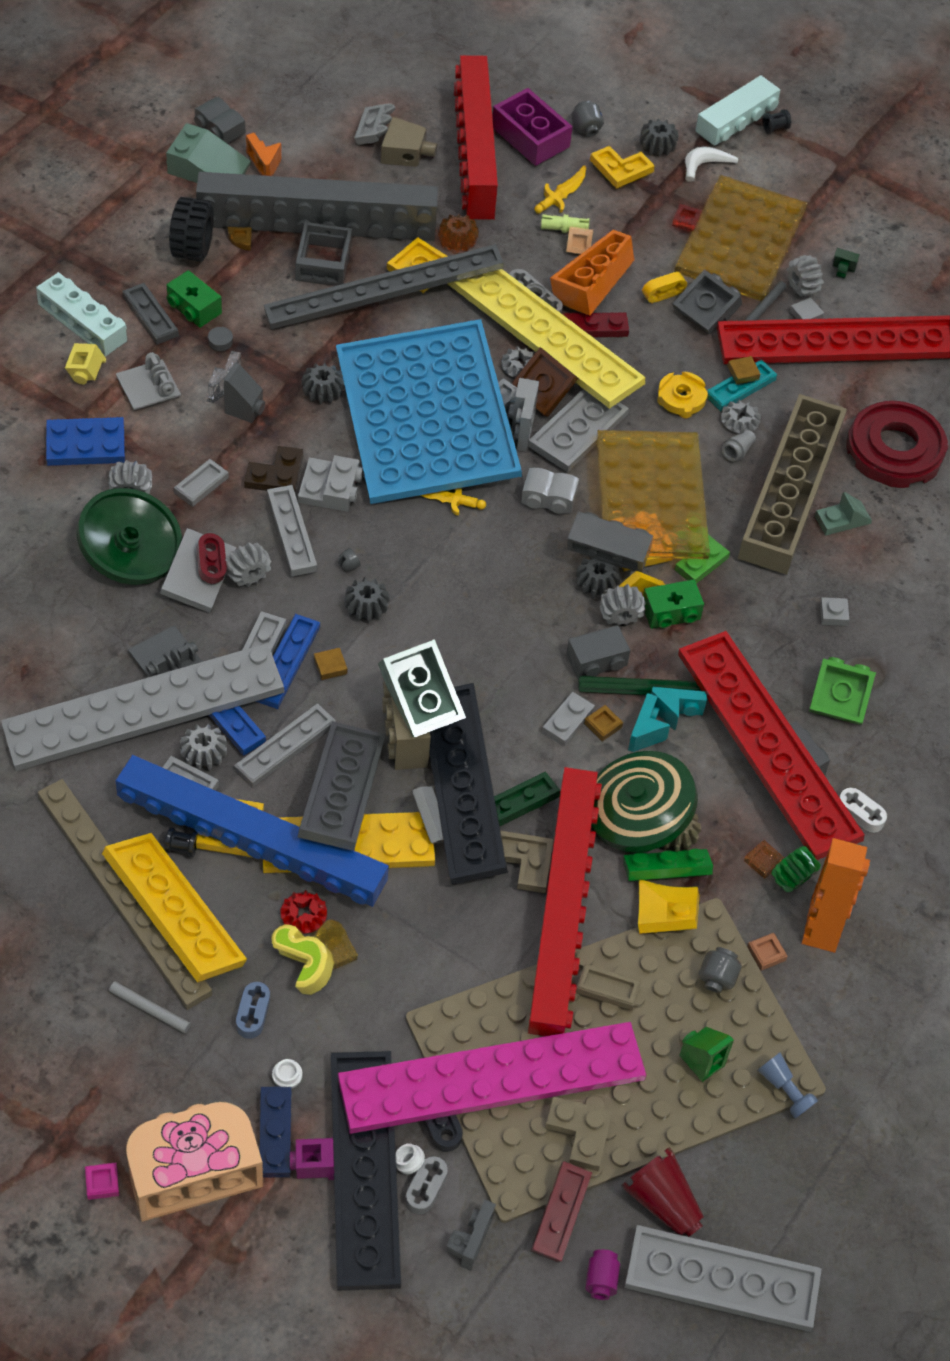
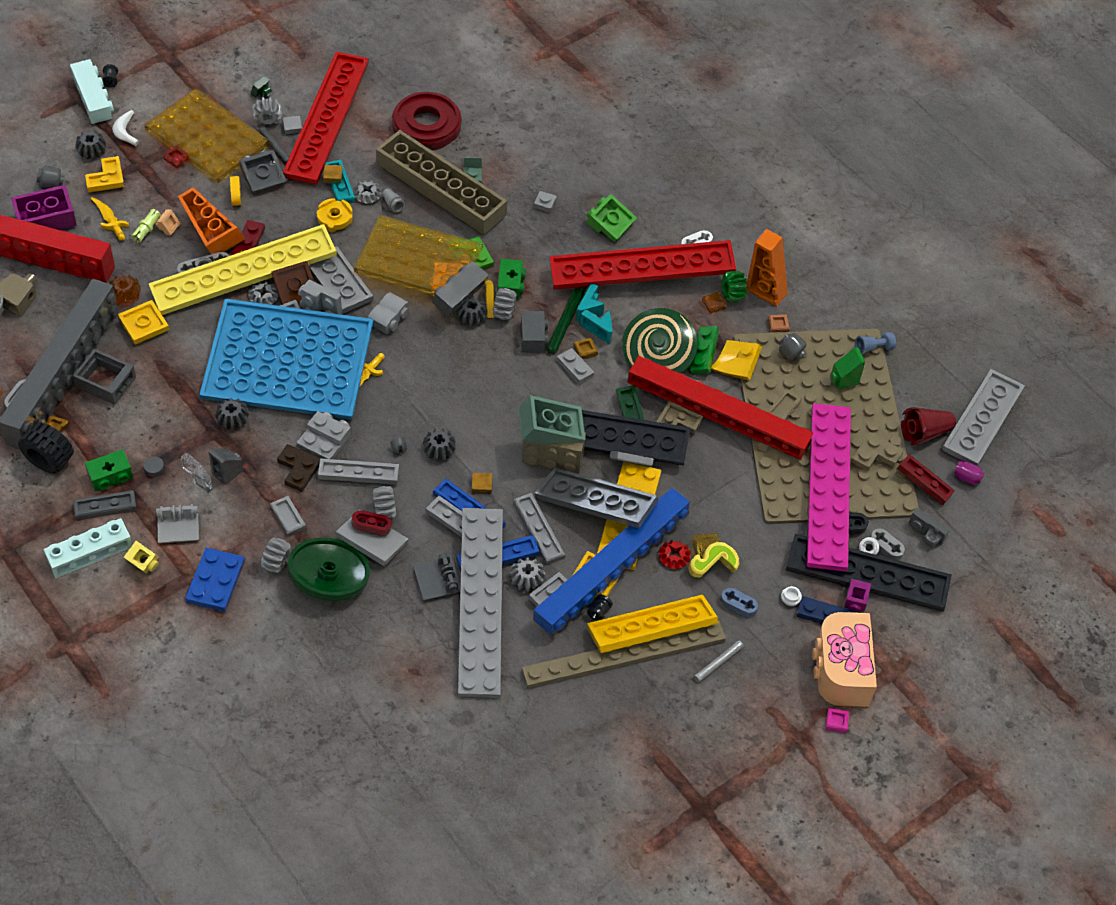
camera: 70 degrees left, 0 degrees up
(383, 286) = (159, 349): dark grey plate -> none

